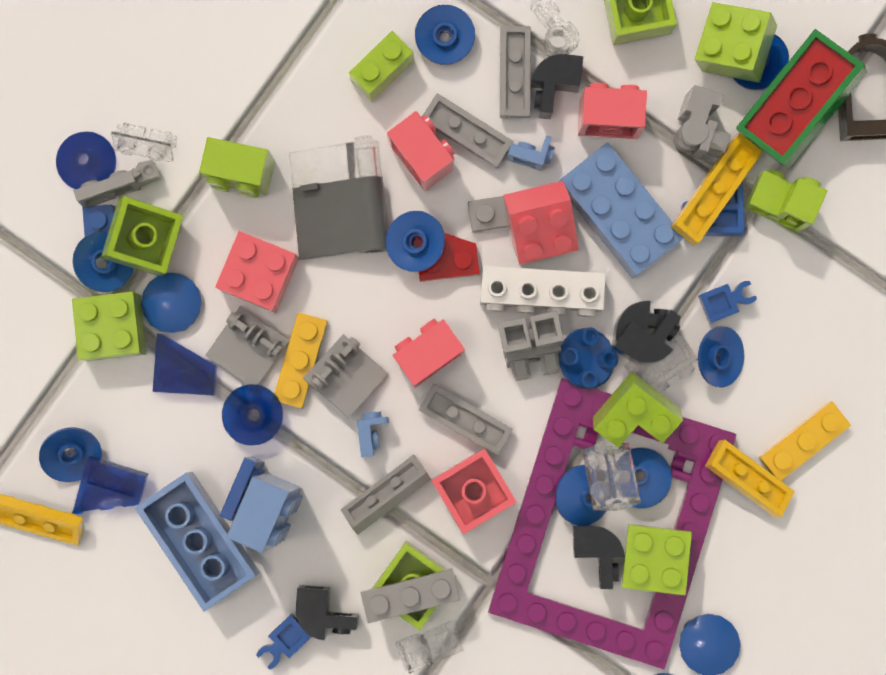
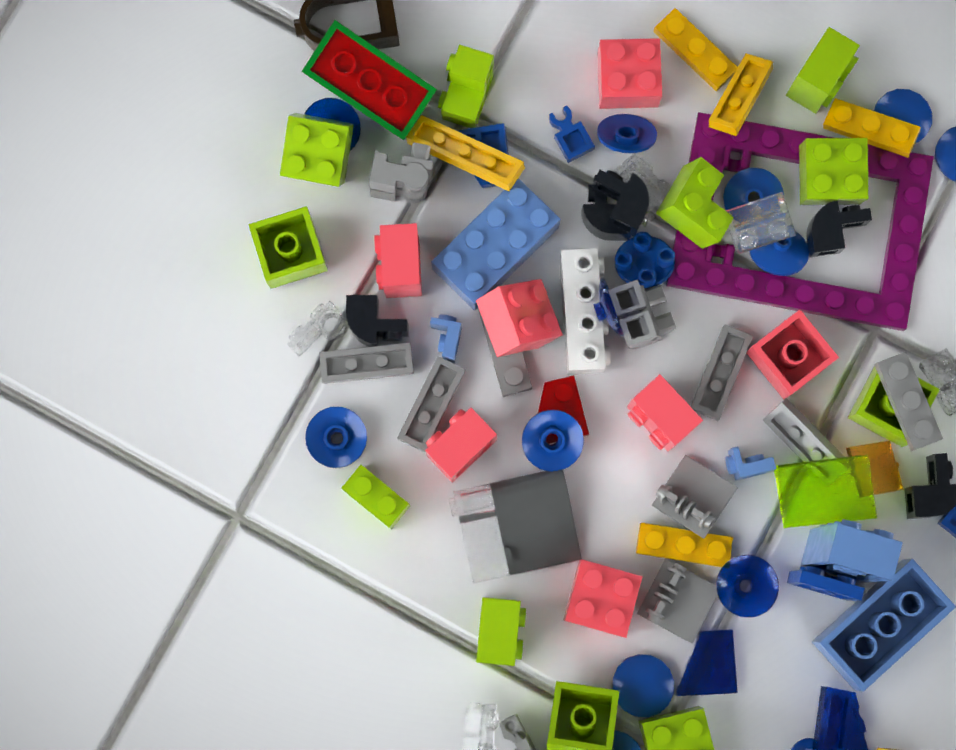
camera: 100 degrees left, 5 degrees down
(333, 504) = (825, 491): none -> clear neon green piece
(350, 557) = (882, 465): none -> clear orange piece
(539, 305) = (605, 308): none -> clear blue dish
(700, 609) = (880, 129): none -> yellow plate
(768, 566) = (824, 71): none -> lime brick
(784, 367) = (629, 73): none -> coral brick

